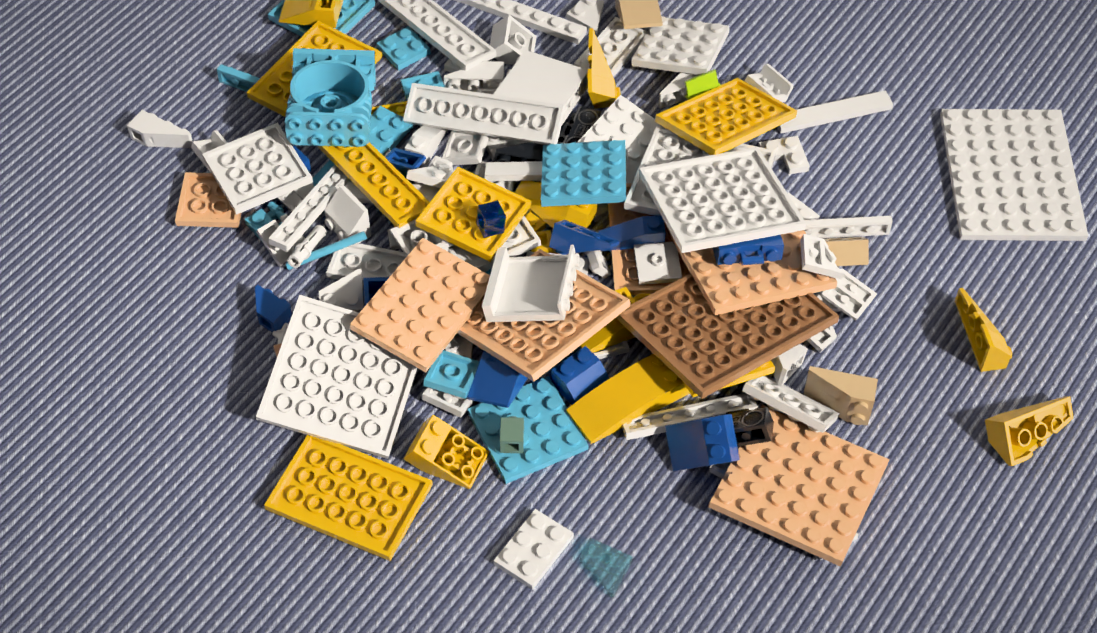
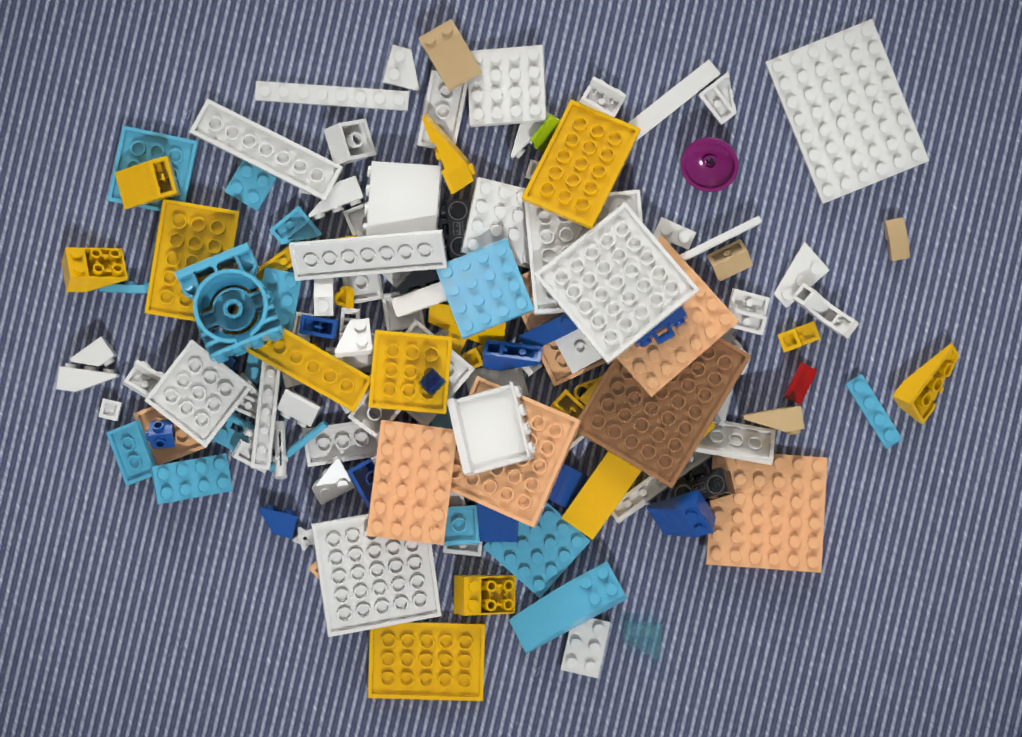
camera: 20 degrees left, 35 degrees up
(163, 201) = (132, 452): none -> medium azure plate
(166, 164) = (110, 409): none -> white plate
(181, 115) = (96, 354): none -> white slope
(200, 188) = (161, 434): none -> blue brick
(205, 238) = (191, 478): none -> medium azure plate
(216, 49) = (92, 268): none -> yellow slope
(444, 149) = (345, 297): none -> yellow tile
(512, 435) = (531, 564): sand green brick -> none
(535, 494) = (567, 607): none -> medium azure slope
(790, 151) = (645, 165): white plate -> none
(818, 258) = (717, 308): white wing -> none
(852, 149) = (705, 174): none -> magenta dish
(884, 122) = (719, 99): none -> white wing
(887, 374) = (800, 383): none -> red panel
(896, 340) = (799, 336): none -> yellow slope
(915, 289) = (805, 269): none -> white wing
(929, 320) = (824, 311): none -> white arch
(957, 437) = (873, 411): none -> medium azure plate
(986, 341) = (874, 314): yellow wedge -> none
(1033, 288) = (897, 239): none -> tan slope

